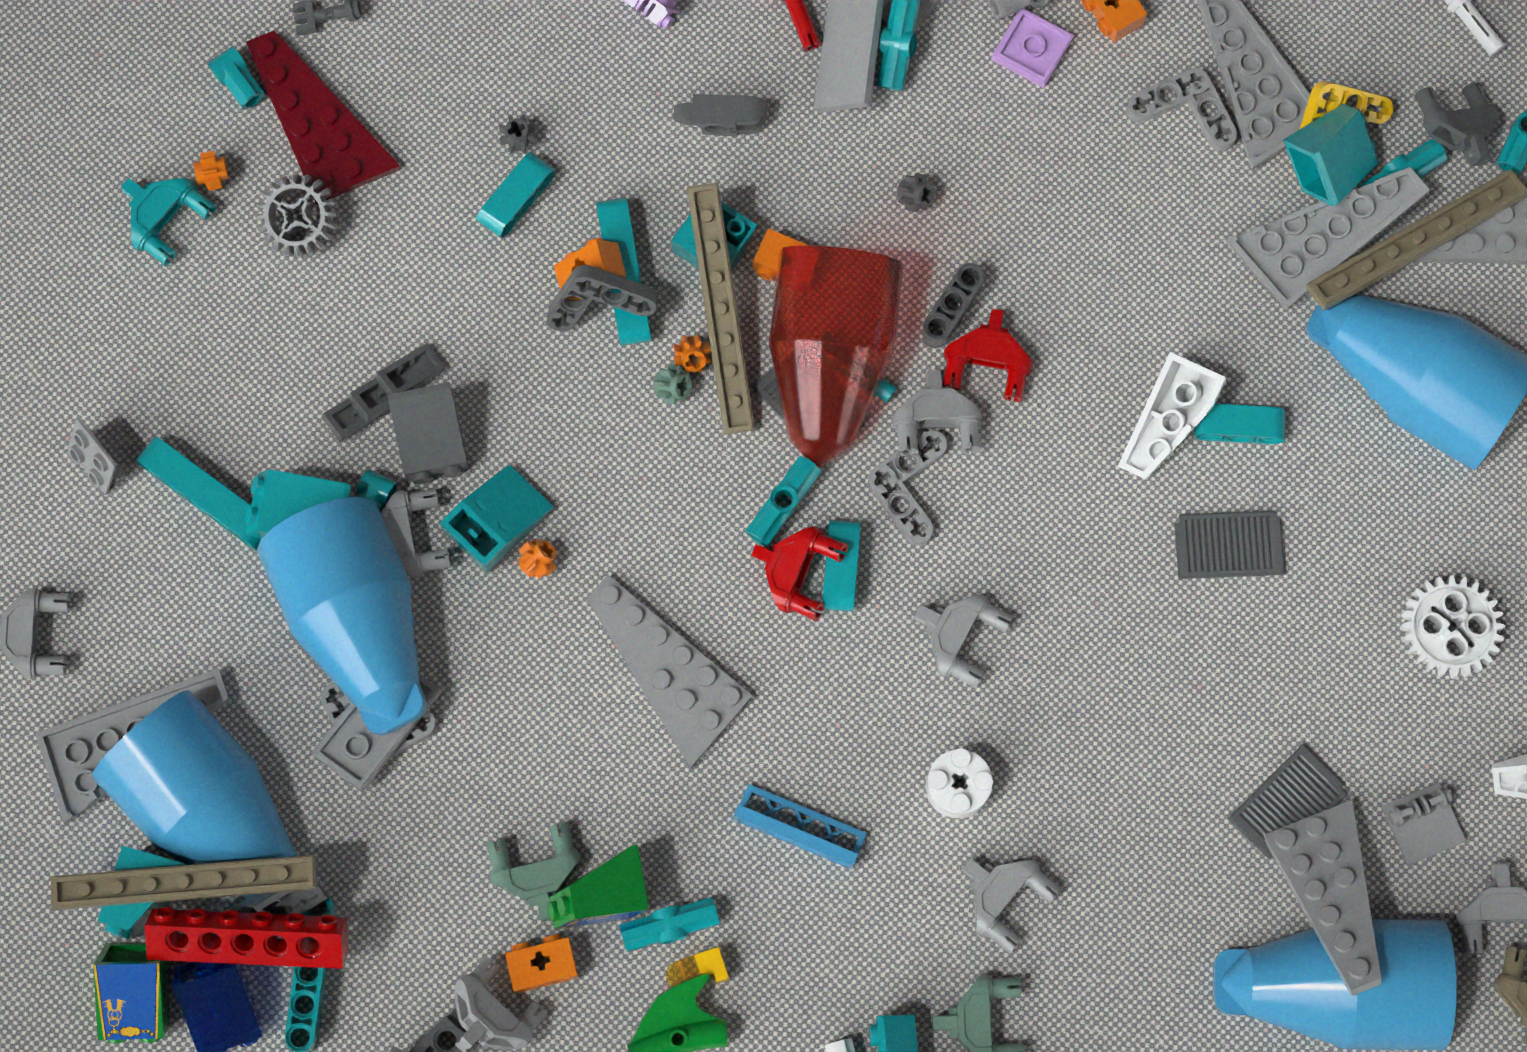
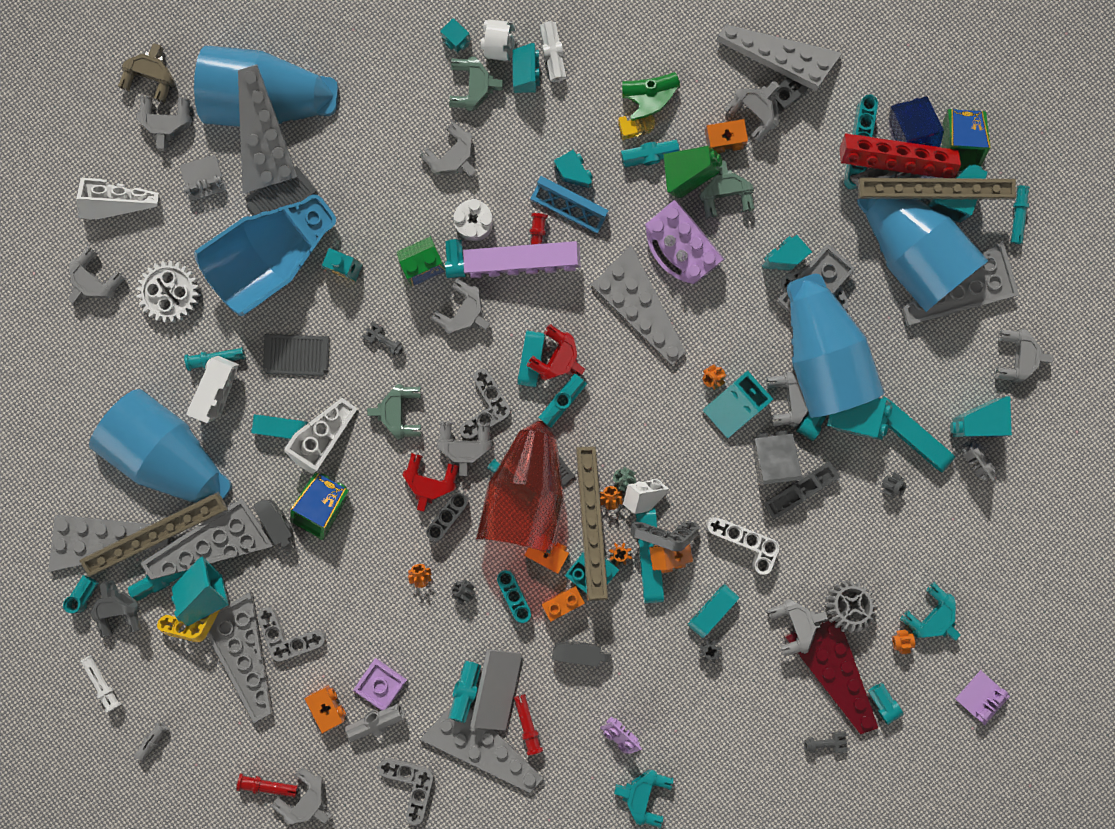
camera: 170 degrees left, 10 degrees up
(34, 871) = (1020, 205): none -> teal pin
(82, 99) = (982, 697): none -> lavender hinge
(92, 519) = (986, 420): none -> teal slope
(234, 409) = (894, 485): none -> dark grey gear
(371, 185) = (804, 624): none -> light grey connector
(427, 762) = (789, 255): none -> teal slope
(479, 304) = (743, 533): none -> white beam
(604, 770) = (682, 244): none -> lavender piece
(638, 360) = (643, 496): none -> white slope
(675, 263) = (622, 549): none -> orange gear
(756, 186) = (563, 603): none -> orange brick
(800, 883) = (572, 171): none -> teal slope
(833, 179) = (514, 605): none -> teal beam
(849, 774) = (538, 228): none -> red pin
(871, 721) = (521, 259): none -> lavender brick
(983, 711) = (454, 254): none -> teal piece
(987, 211) = (419, 575): none -> orange gear
(1041, 708) = (420, 261): none -> green slope
(1061, 462) = (391, 411): none -> sand green connector
(1065, 565) = (396, 348): none -> dark grey hinge
(1159, 307) = (318, 505): none -> slope
(1171, 691) = (341, 264): none -> teal torso
(1227, 273) = (275, 523): none -> dark grey piece
(1296, 691) = (263, 252): none -> dark azure windscreen
(1354, 468) = (213, 389): none -> white wedge
(1375, 522) = (200, 360): none -> teal pin

